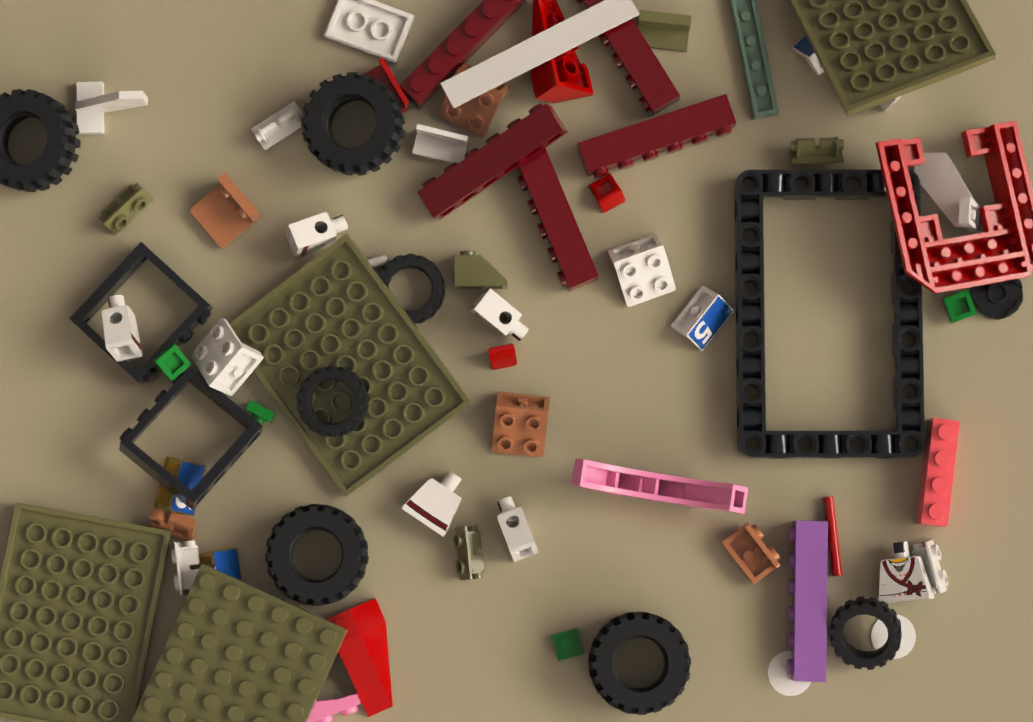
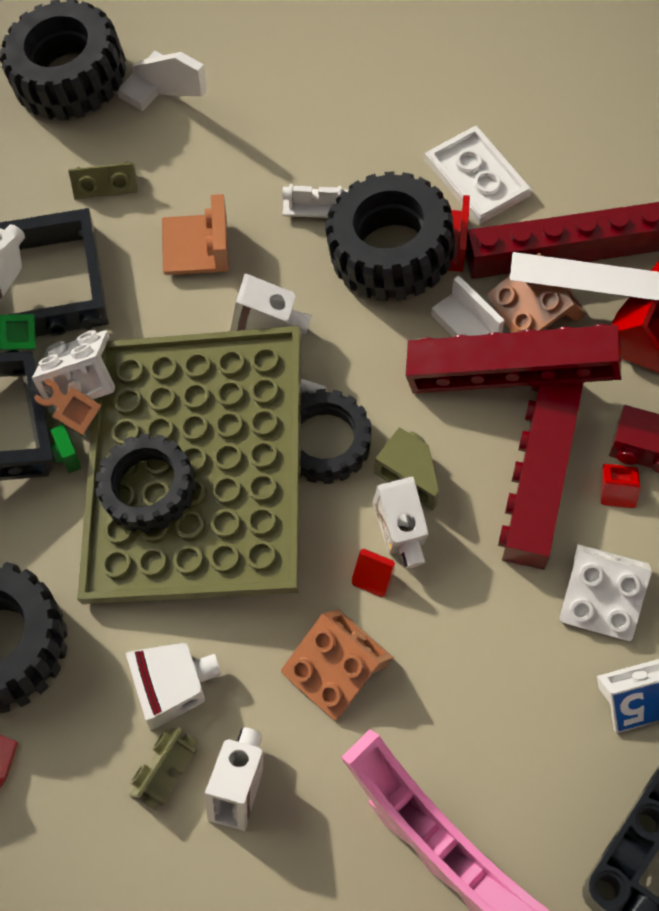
camera: 35 degrees right, 20 degrees down
(248, 386) = (73, 409): none -> nougat plate

